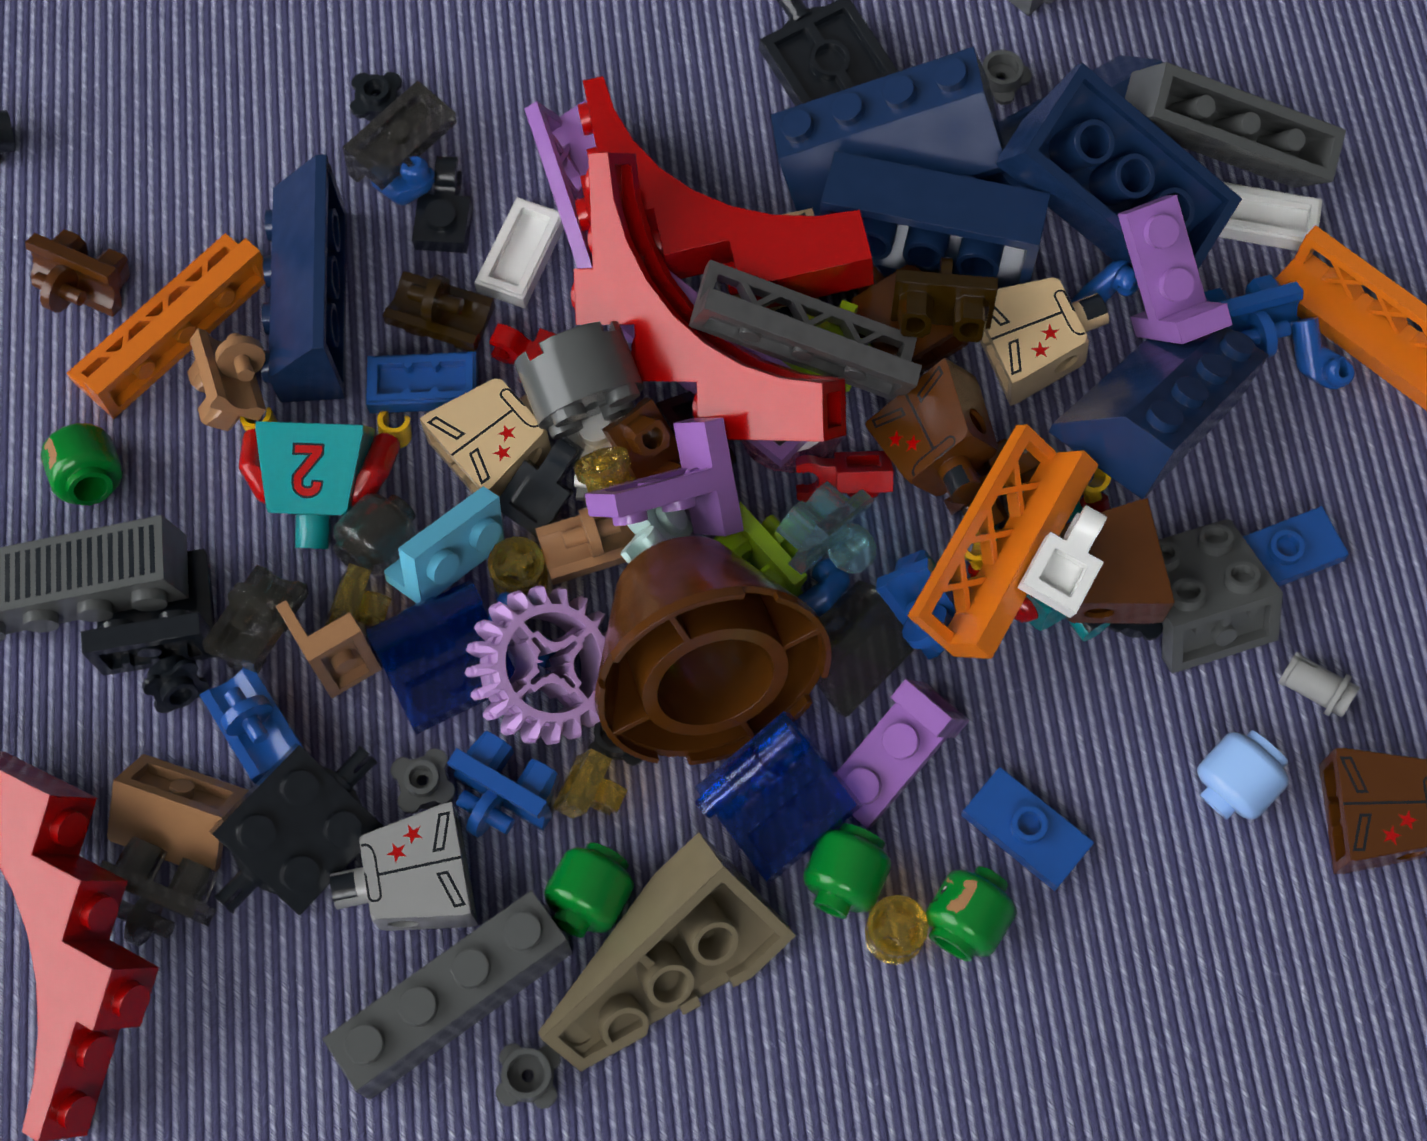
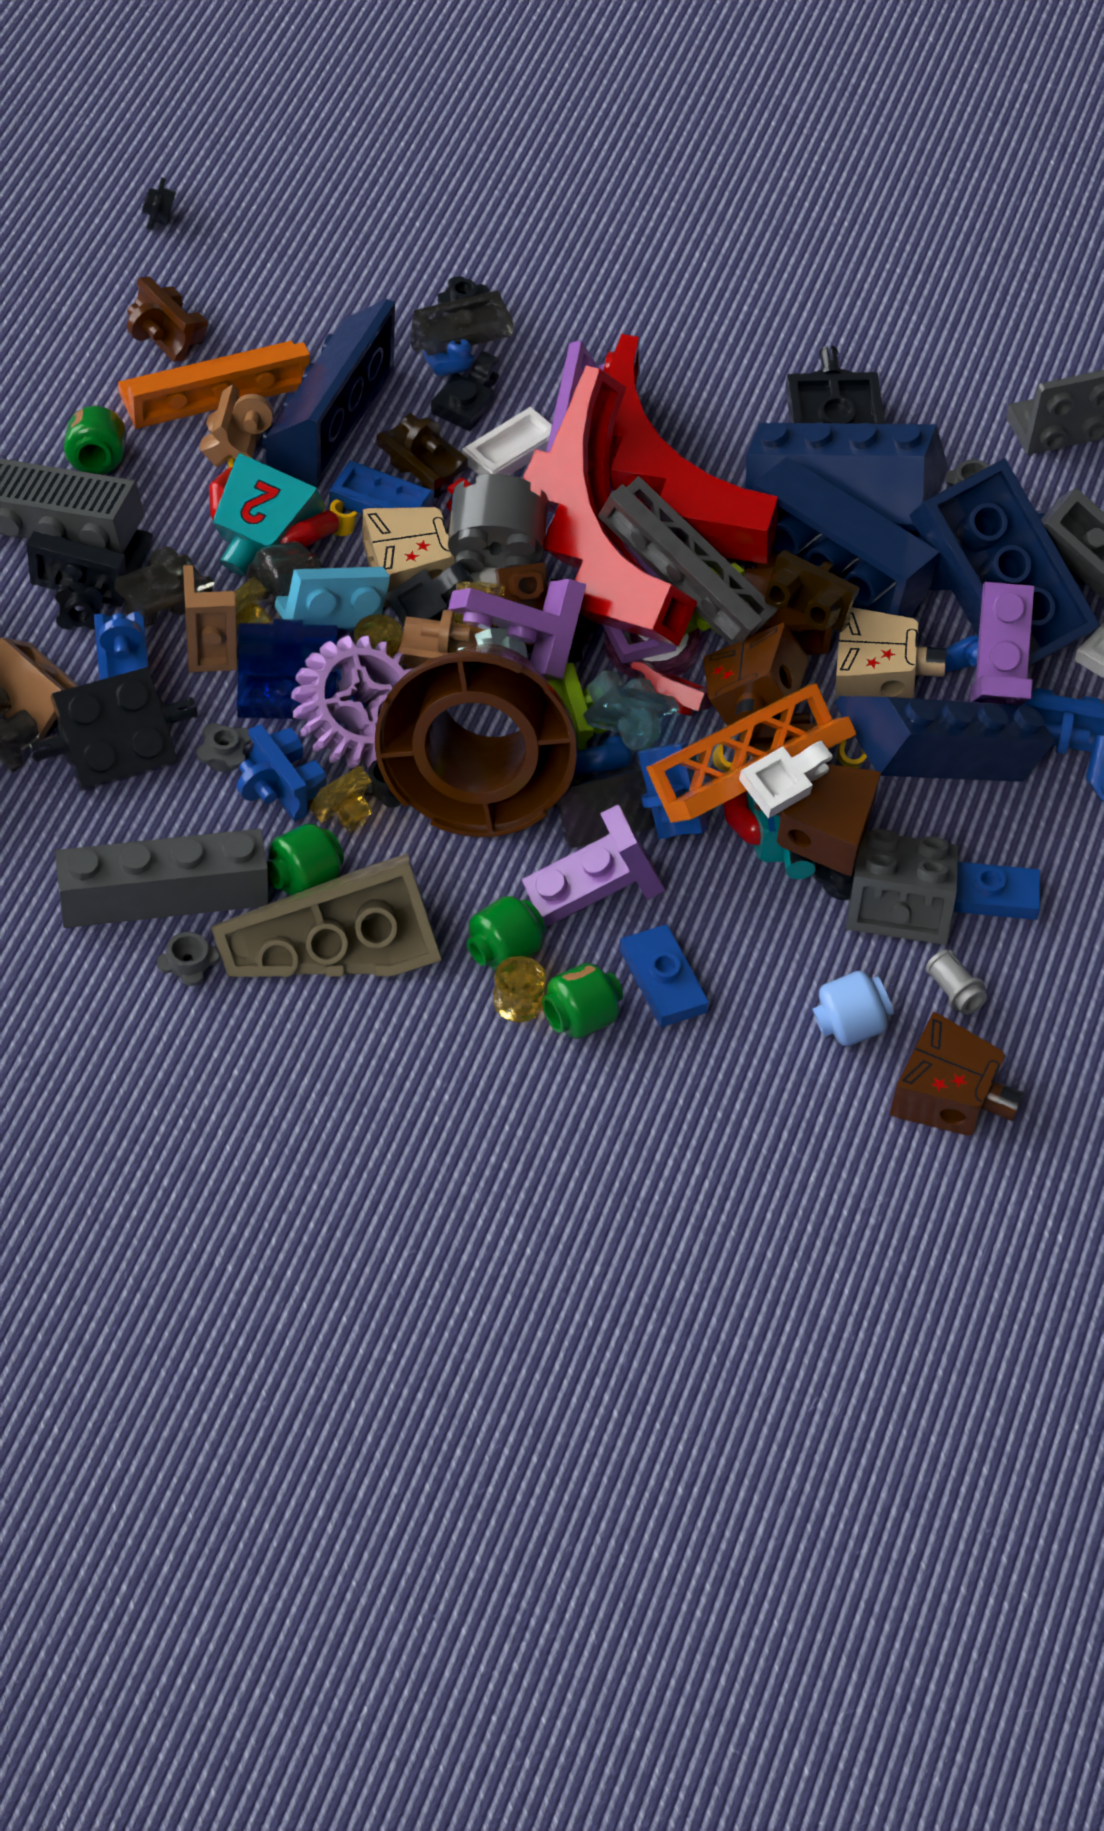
camera: 20 degrees right, 15 degrees down
(412, 874) = (180, 792): light grey torso -> none
(777, 796) = (480, 858): clear blue plate -> none

